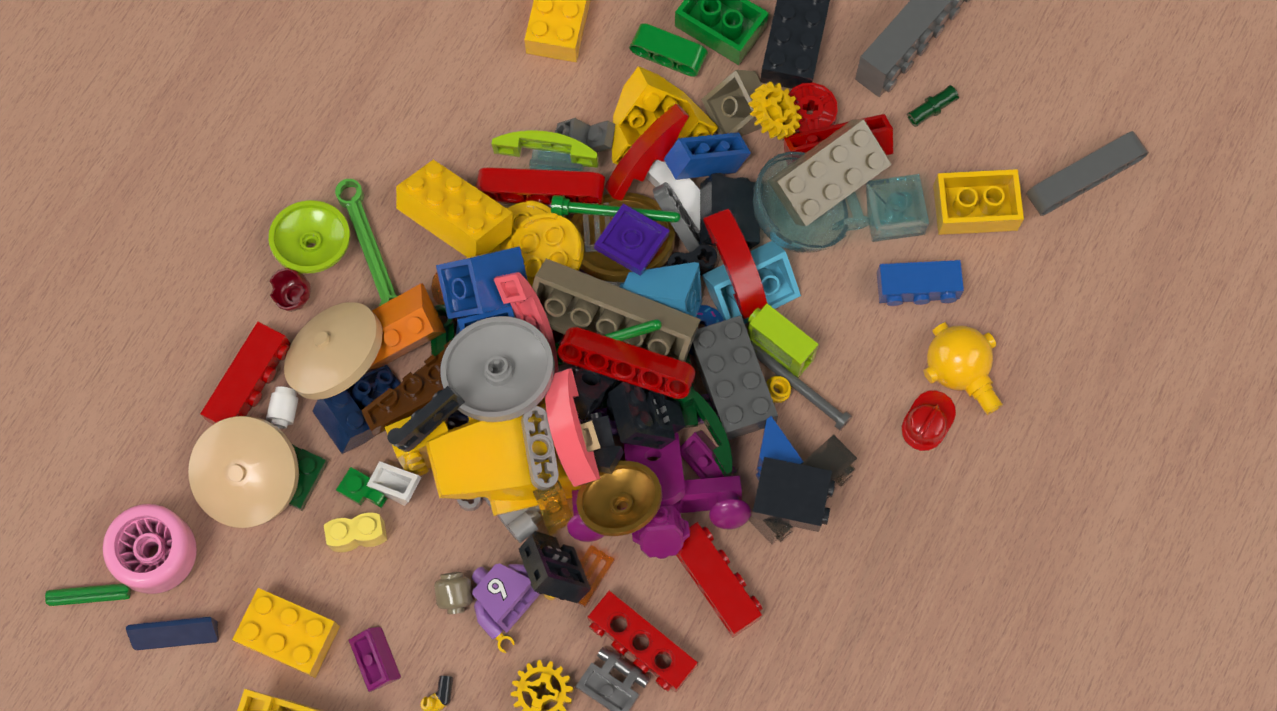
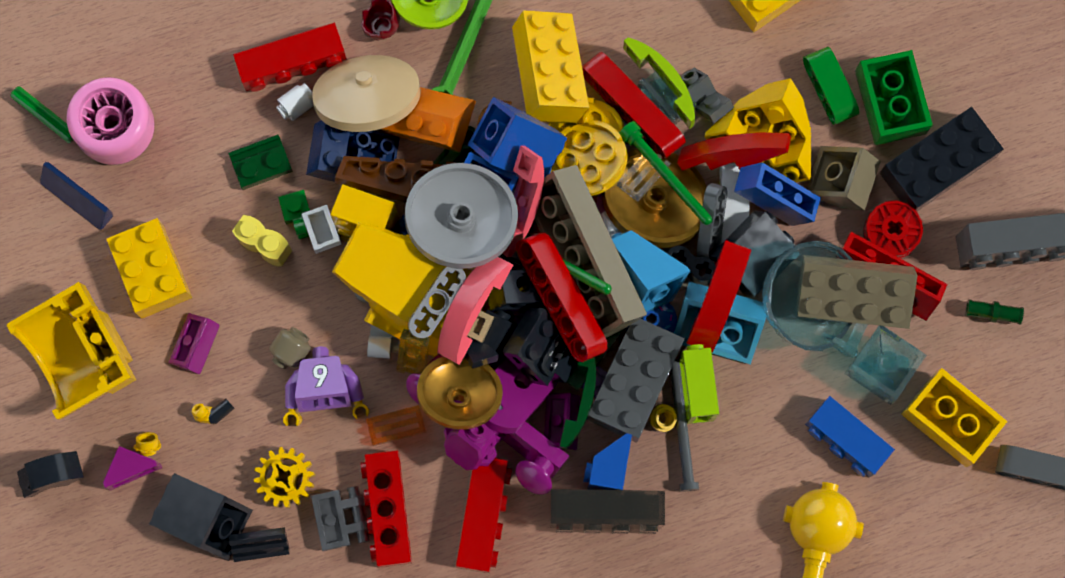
camera: 40 degrees right, 5 degrees up
(243, 471) = (225, 124): tan dish -> none
(425, 420) = (372, 206): black plate -> none
(554, 568) = (372, 397): black piece -> none
(631, 239) = (656, 207): dark purple plate -> none
(775, 110) = (861, 206): yellow gear -> none
(793, 494) = (589, 507): black brick -> none
(928, 420) = (755, 546): red piece -> none

